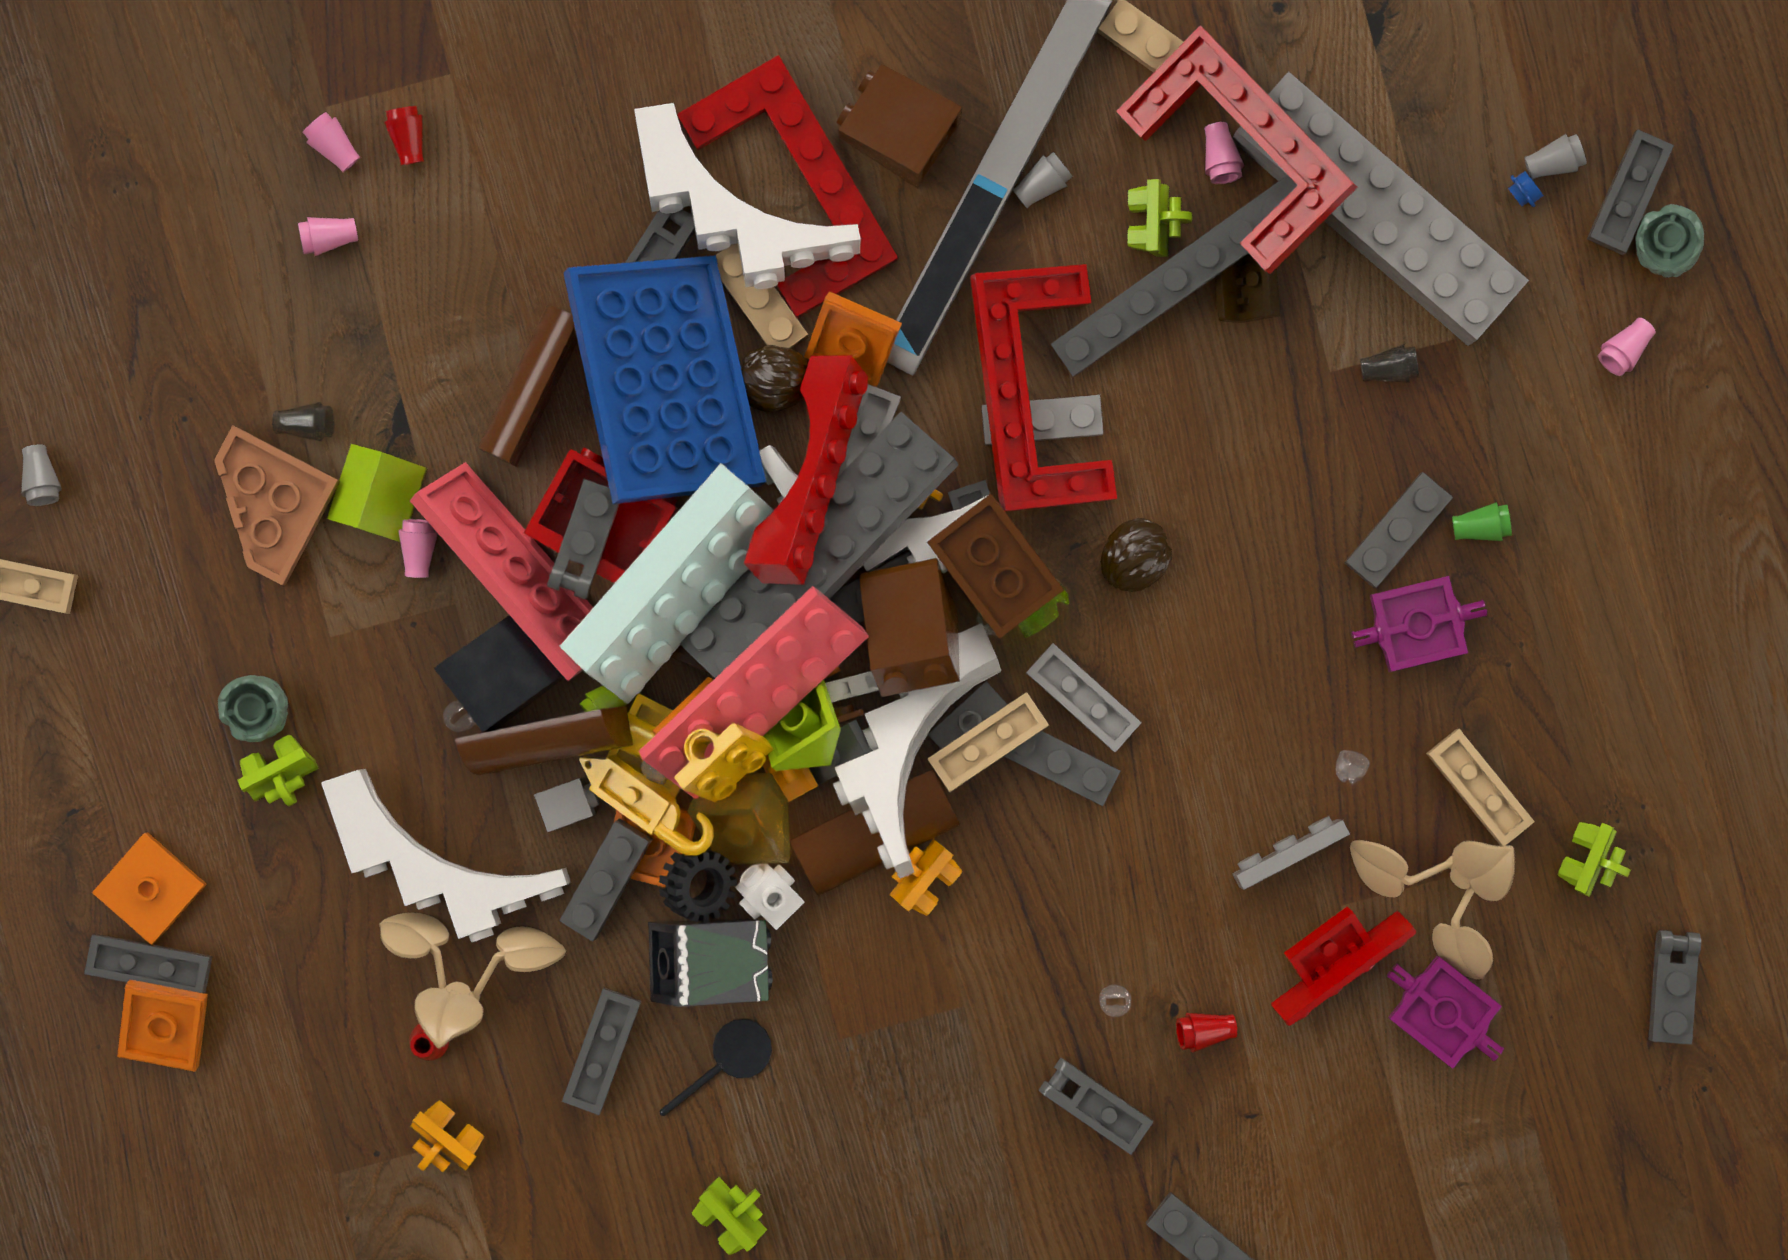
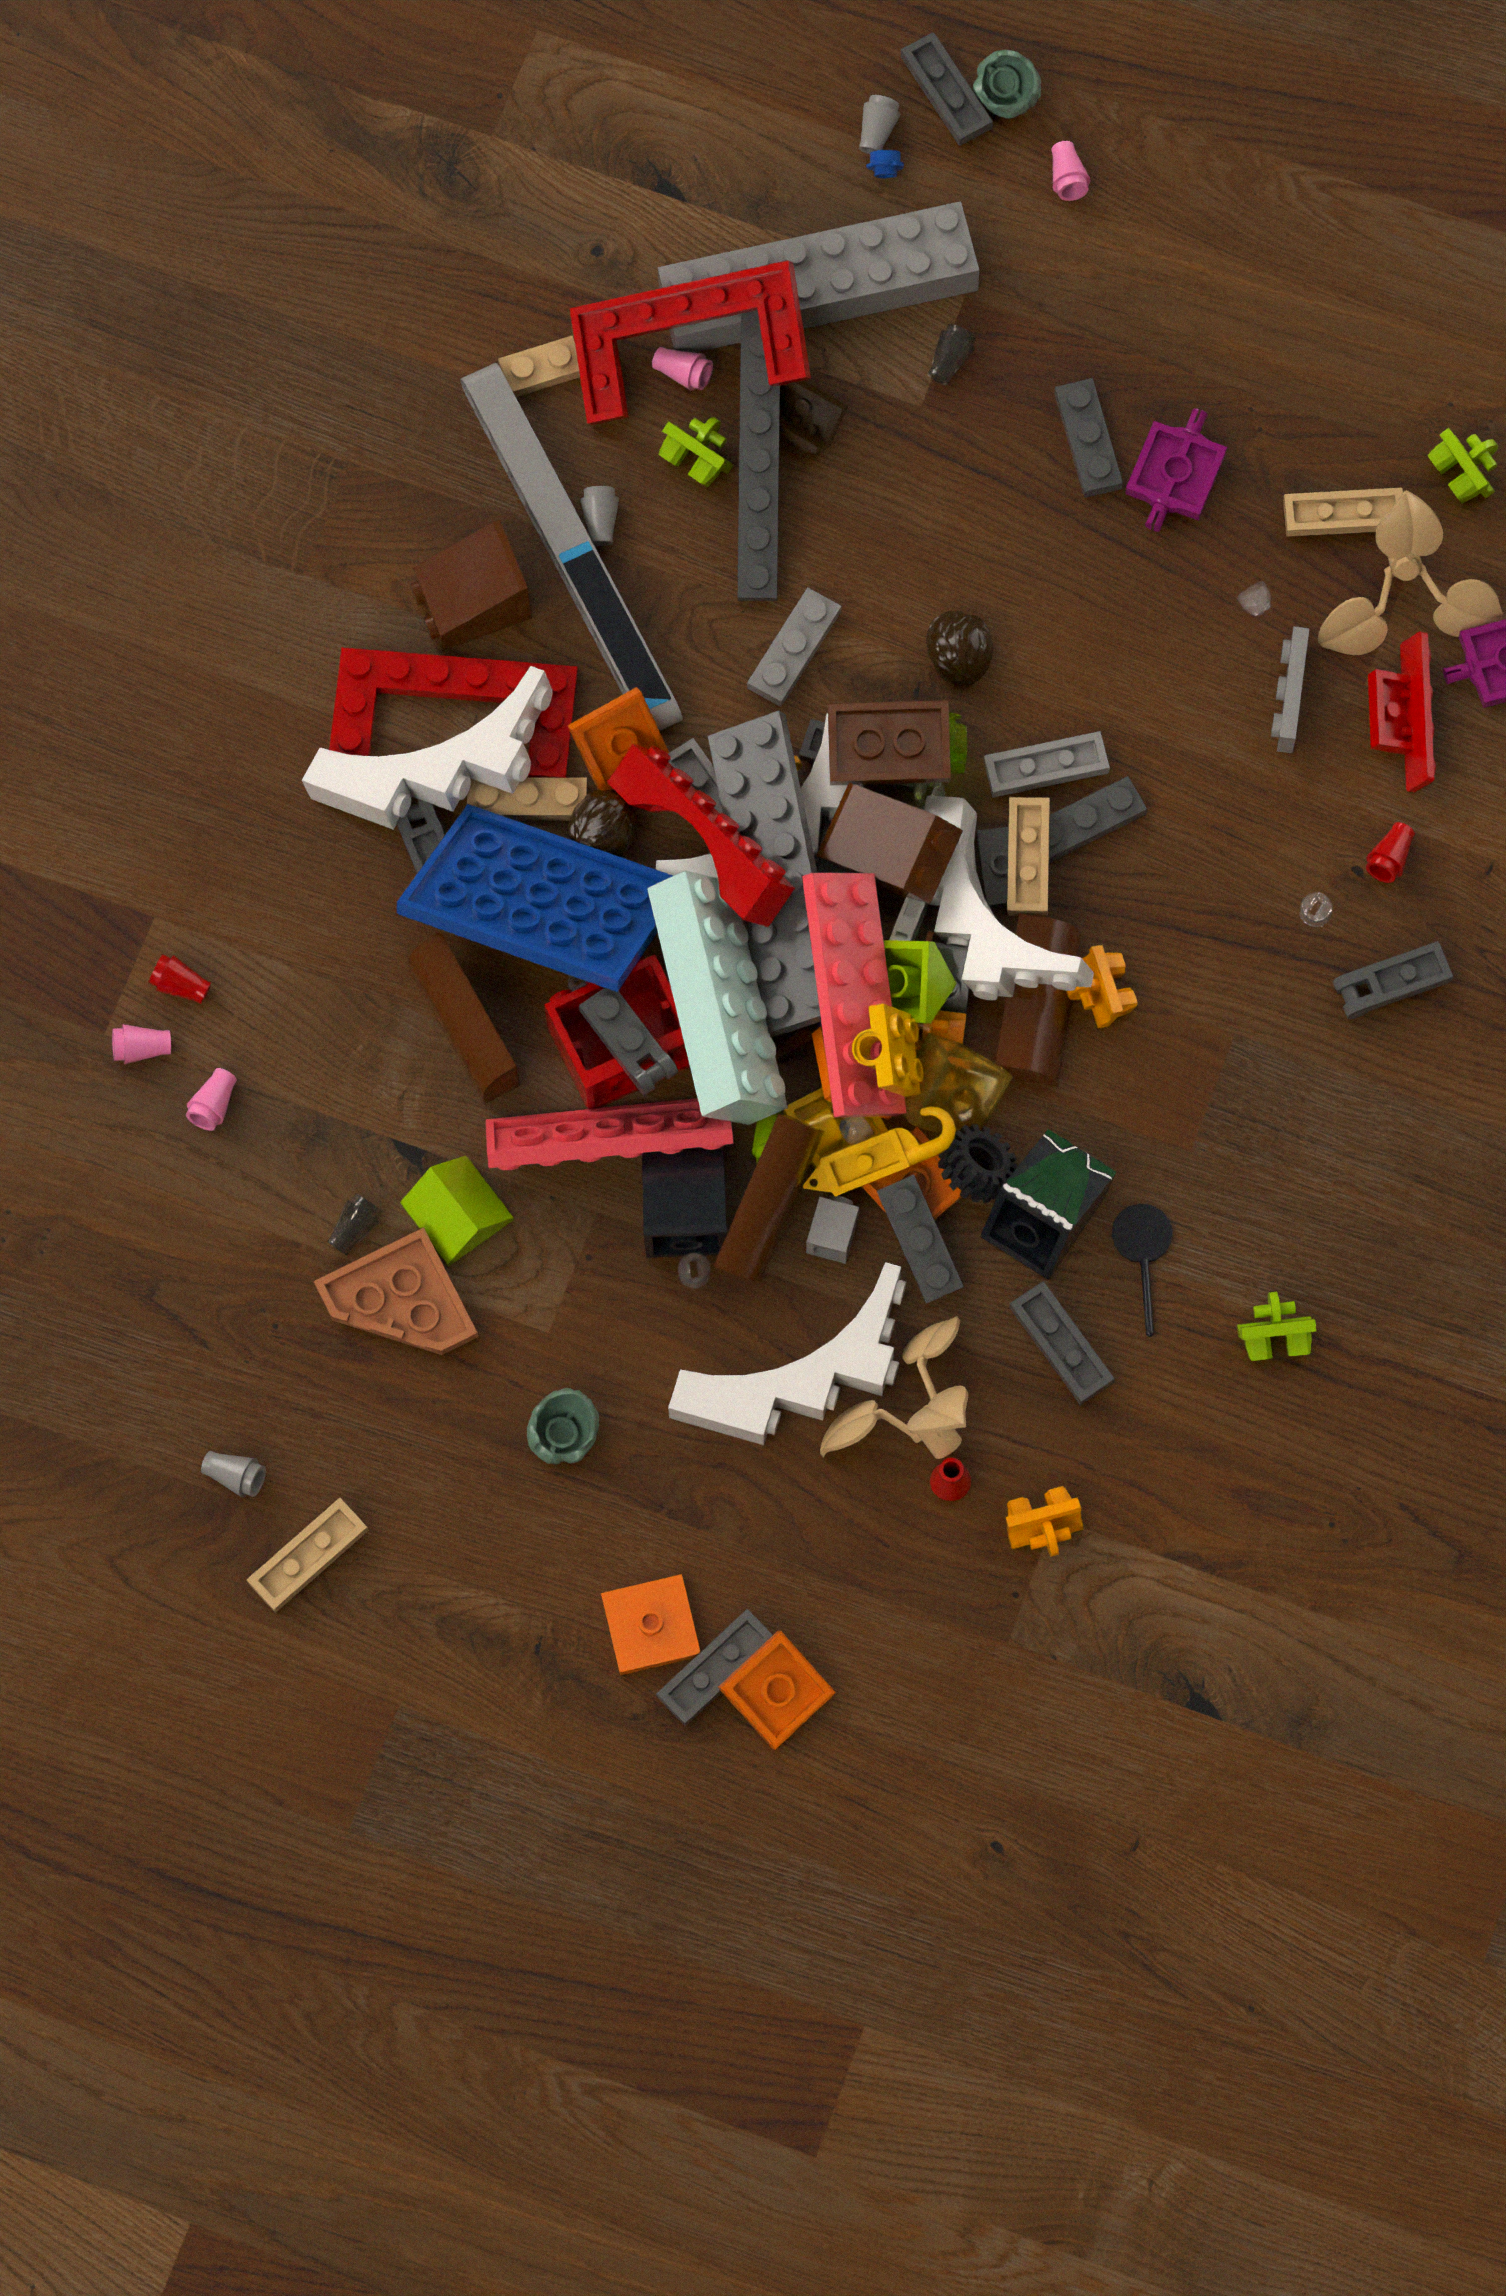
camera: 50 degrees left, 15 degrees down
(279, 777) = (637, 1446): lime hips -> none
(417, 546) = (527, 1203): bright pink cone -> none
(768, 893) = (1027, 1113): white brick -> none
(996, 306) = (674, 607): red plate -> none
(1485, 523) = (1131, 368): bright green cone -> none

